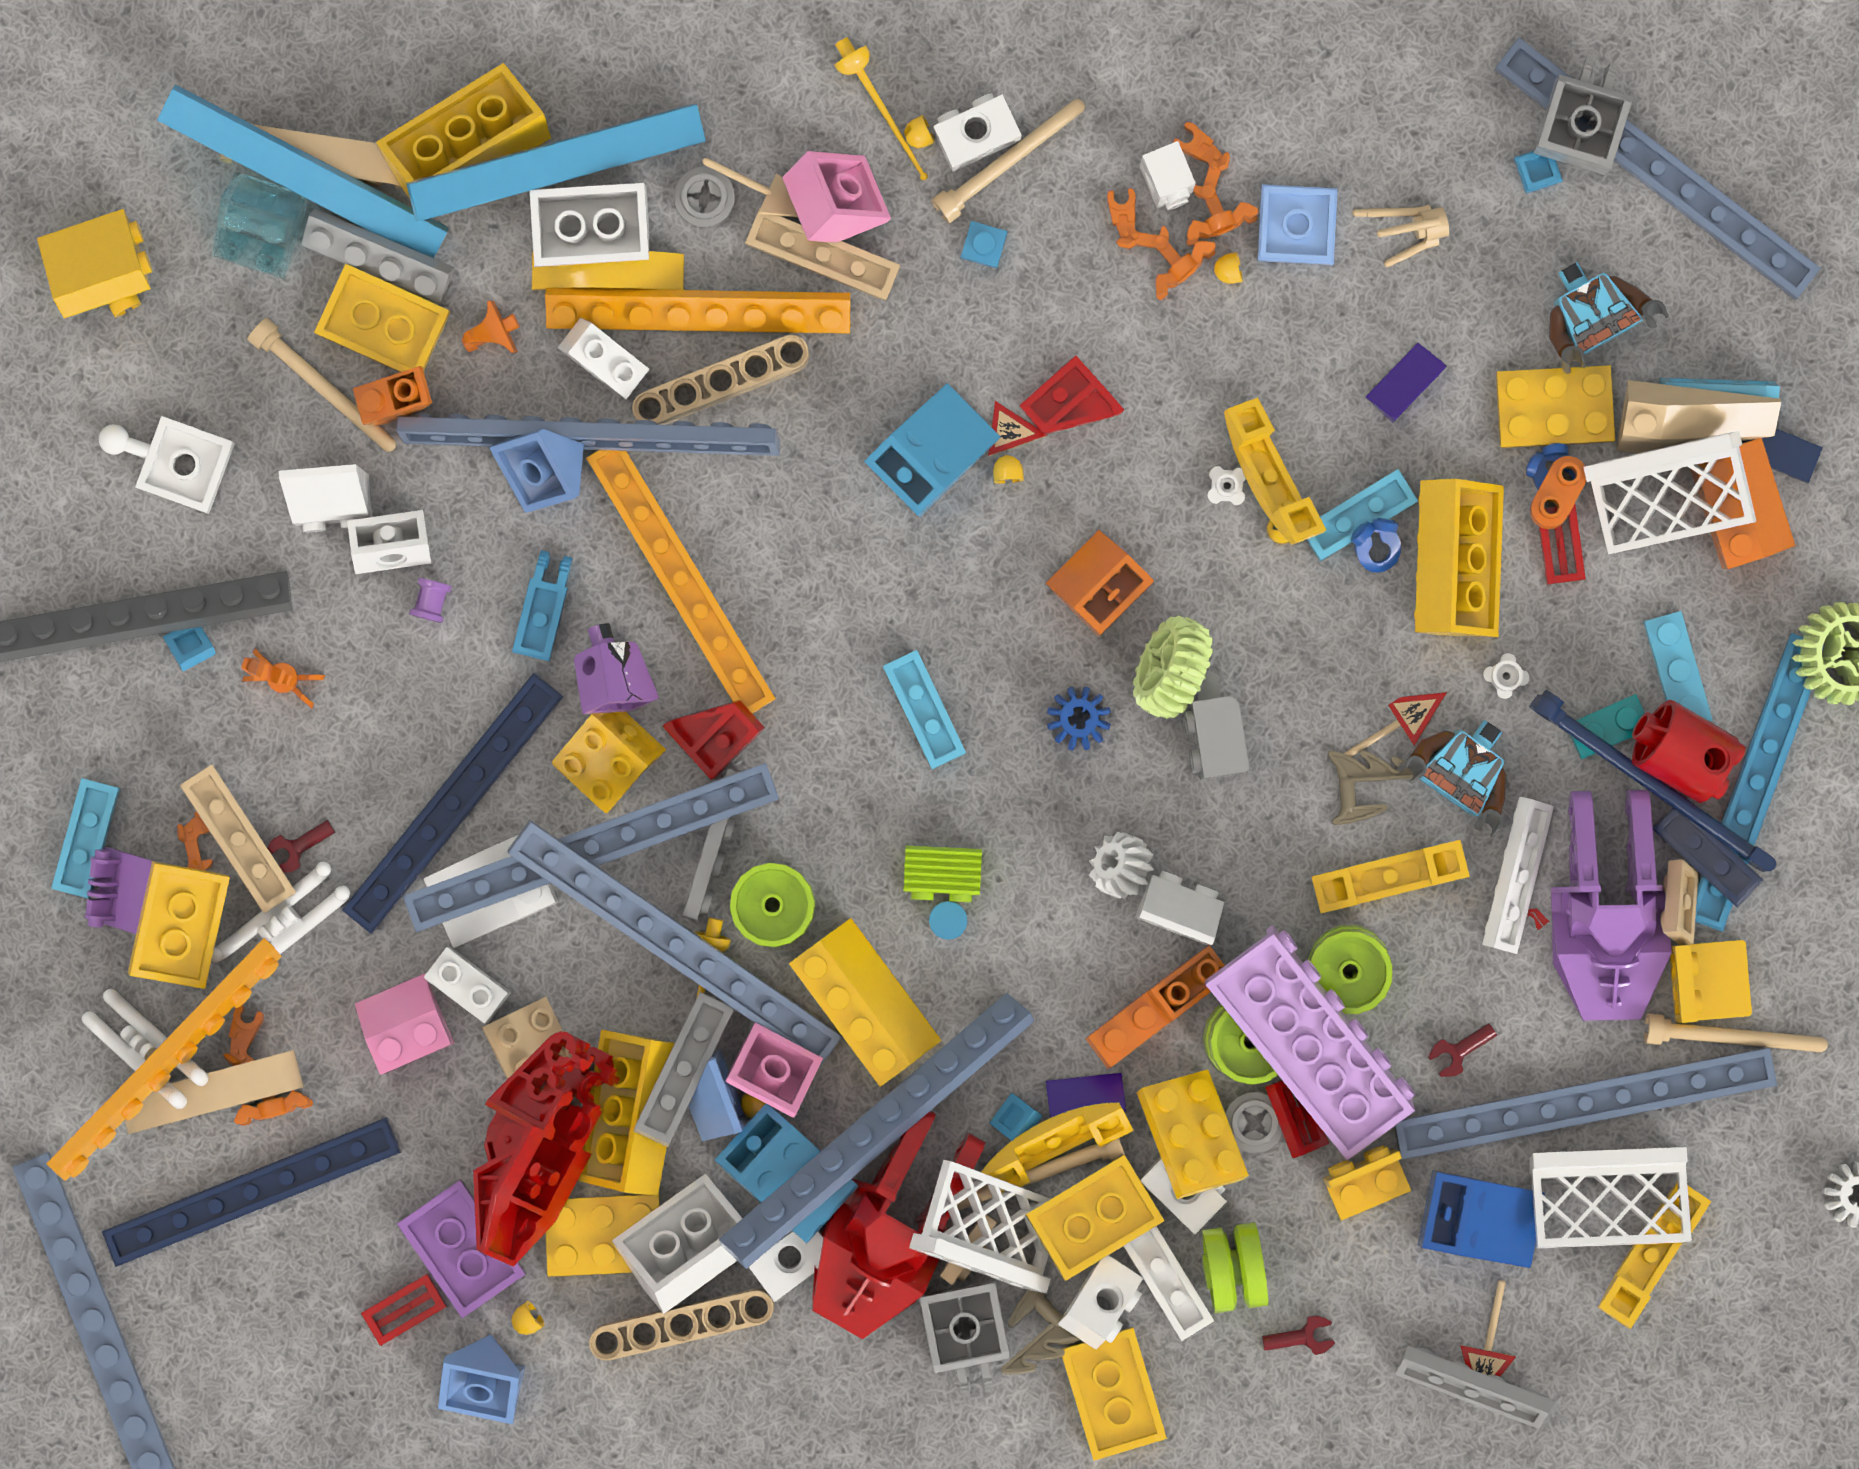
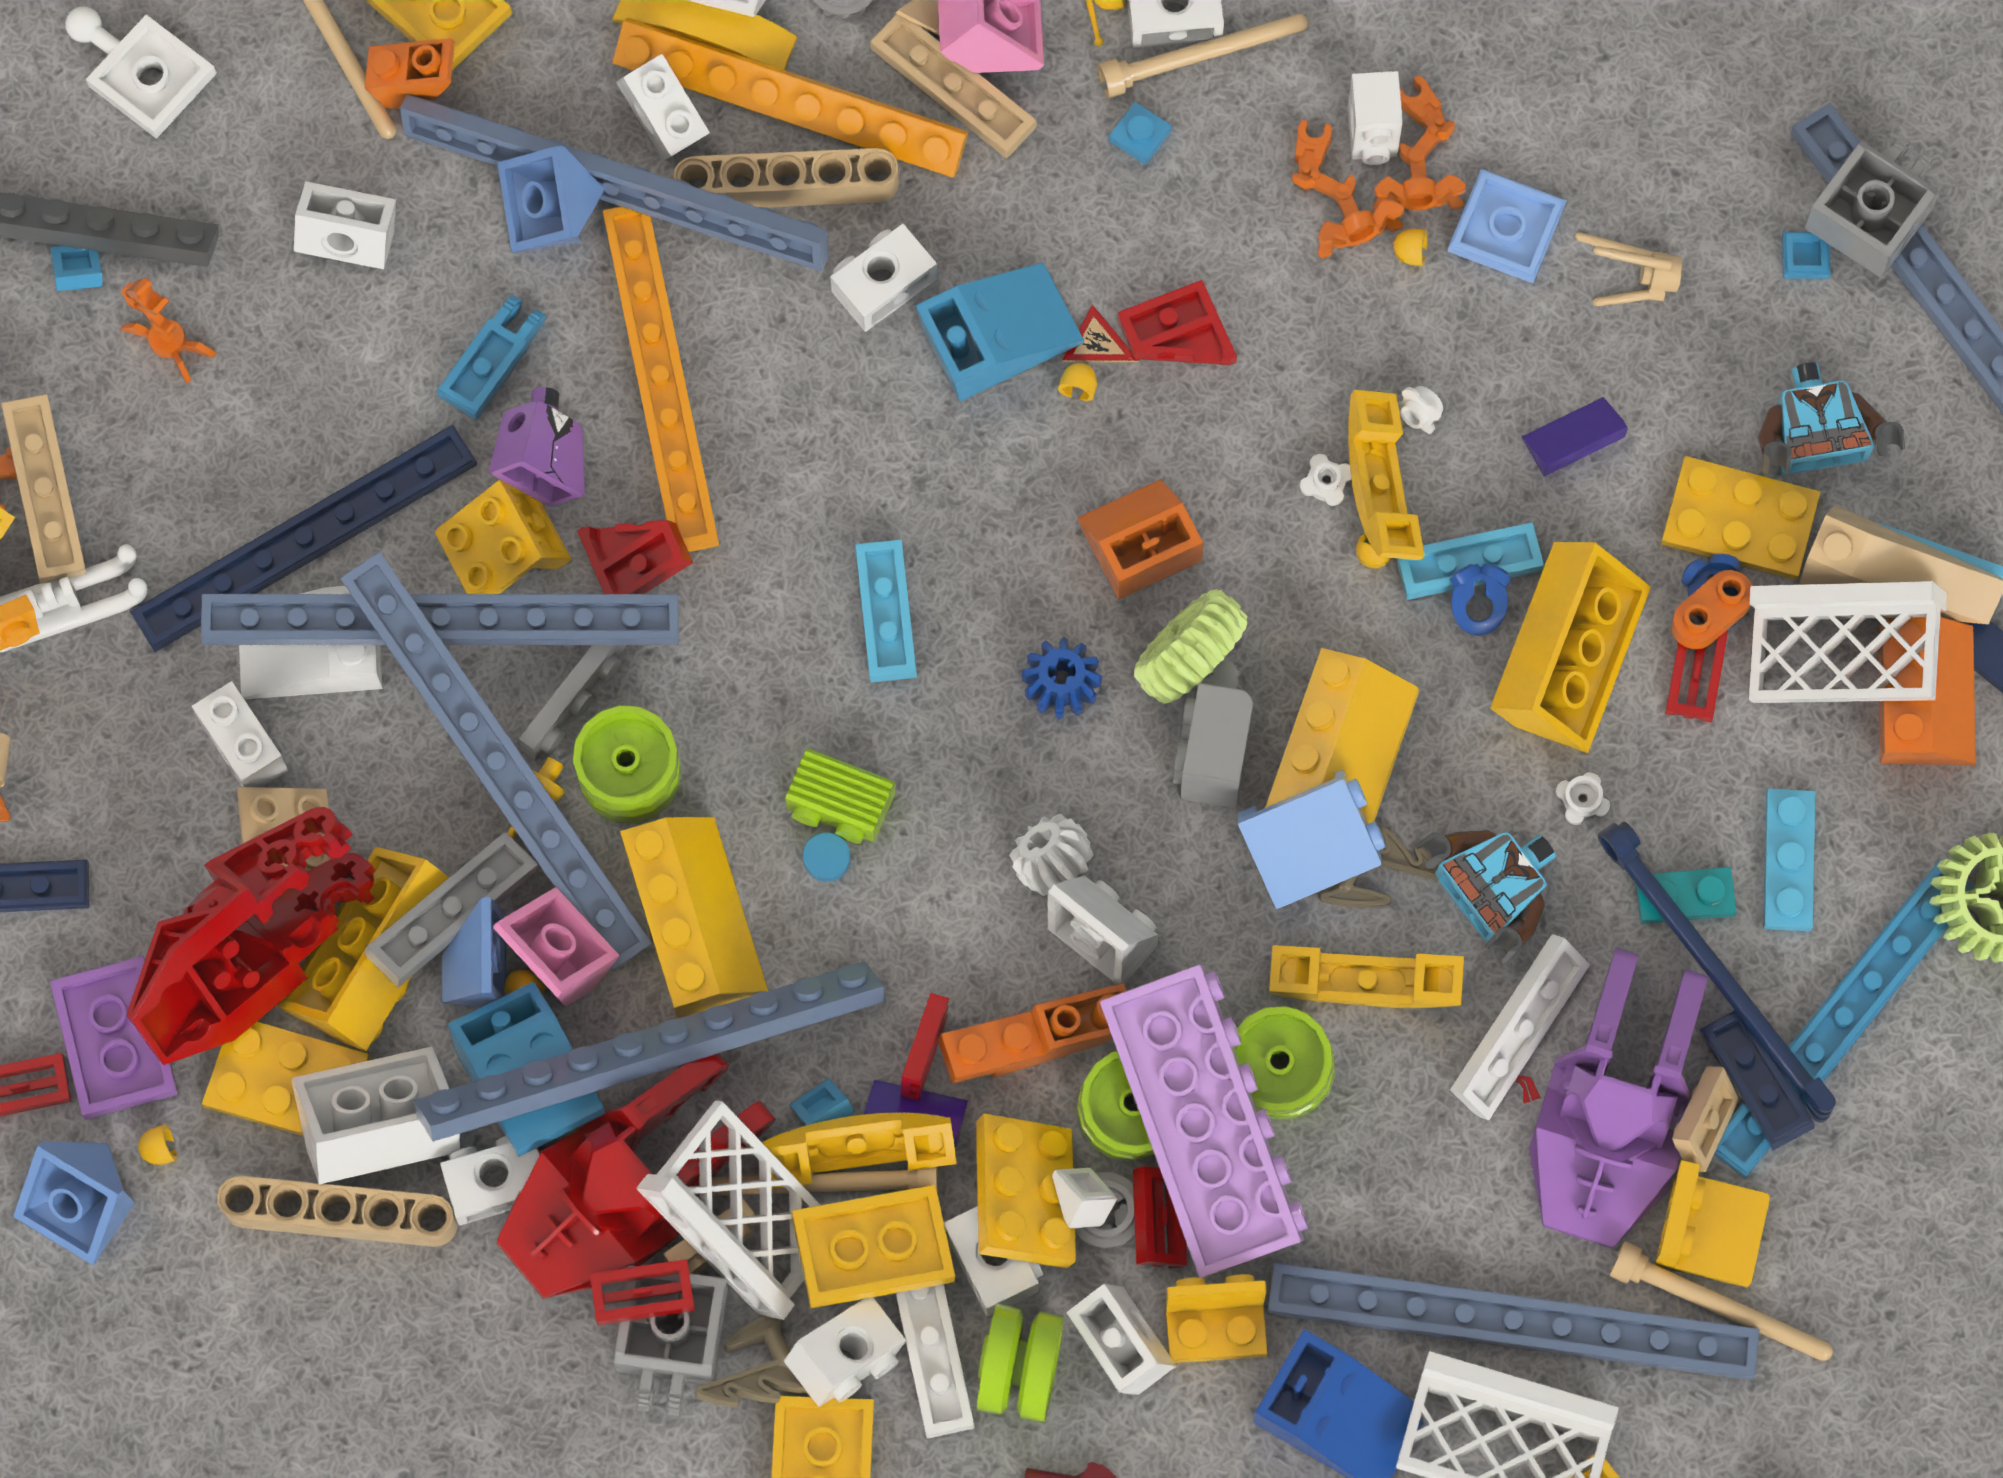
camera: 20 degrees right, 15 degrees down
(301, 844) = (111, 526): dark red bar -> none
(326, 495) = (292, 141): white slope -> none
(403, 1024) = (148, 764): bright pink slope -> none
(430, 600) = (367, 307): medium lavender bush -> none
(492, 329) = (548, 44): orange piece -> none
(823, 460) = (874, 300): none -> white brick
(966, 1301) = (642, 1311): none -> red tile
(1077, 1046) = (924, 1047): none -> red tile
(1236, 1124) = (1083, 1197): none -> white slope
(1280, 403) = (1420, 408): none -> white plate
(1302, 1221) = (1121, 1339): none -> white brick
(1313, 709) = (1349, 723): none -> yellow slope
(1317, 790) = (1312, 839): none -> light blue panel
(1412, 715) = (1455, 805): piece -> none
(1461, 1049) = (1383, 1210): dark red bar -> none
(1685, 751) = (1767, 942): red cylinder -> none

